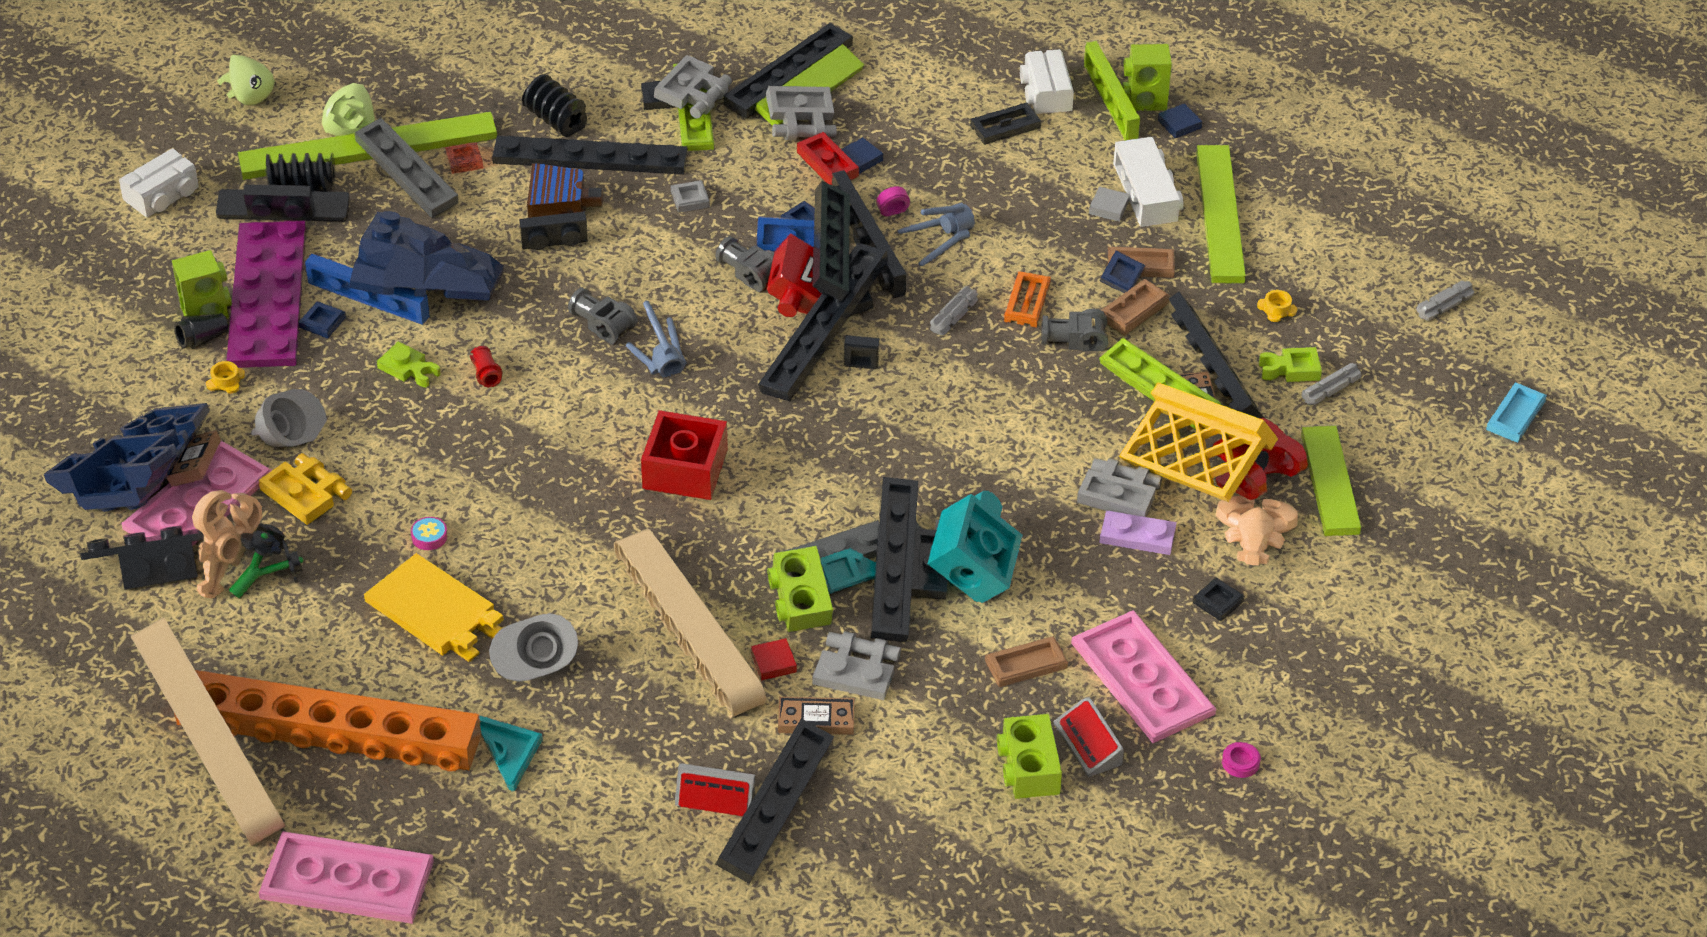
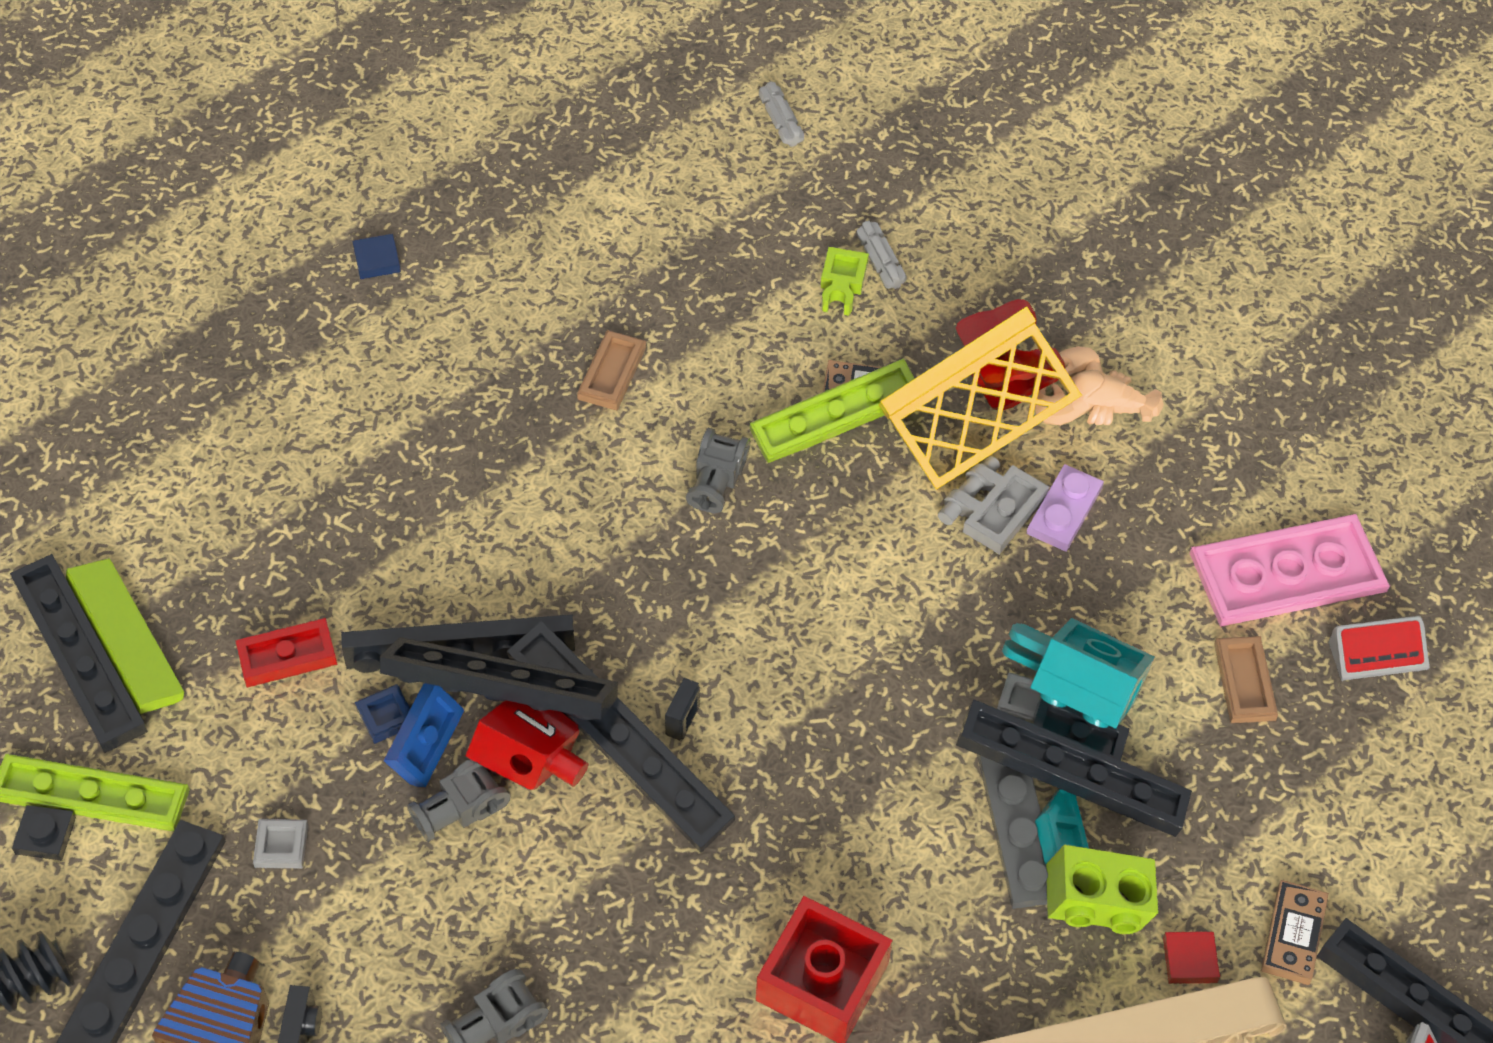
camera: 75 degrees left, 10 degrees up
(666, 358) = (608, 951): sand blue plant -> none
(686, 80) = (62, 786): light grey plate -> none
(800, 103) = (170, 652): light grey plate -> none
(855, 674) = (1232, 873): light grey plate -> none
(863, 154) = (287, 608): dark blue tile -> none
(893, 201) = (406, 597): dark pink tile -> none
(954, 310) = (629, 588): light grey axle -> none
(956, 220) = (470, 542): sand blue plant -> none
(1007, 126) = (302, 463): black tile -> none
(1022, 316) = (628, 517): orange tile -> none
(1030, 755) = (1410, 704): lime brick -> none
(1047, 82) = (251, 364): white brick -> none
(1109, 204) = (496, 370): light grey tile -> none
(1111, 91) = (300, 303): lime tile -> none
(1122, 272) = (633, 391): dark blue tile -> none
(1135, 306) = (693, 397): medium nougat plate -> none
(1147, 181) = (483, 318): white brick -> none
(1148, 76) = (312, 254): lime brick -> none
(1213, 357) = (815, 347): black plate -> none
(1218, 599) = (1186, 462): black tile -> none
(1220, 214) = (557, 267): lime tile -> none
(1241, 759) = (1428, 514): dark pink tile -> none
(1277, 305) = (735, 254): yellow plate -> none
(1330, 481) = (1052, 306): lime tile -> none
(1516, 412) = (970, 114): medium azure tile -> none

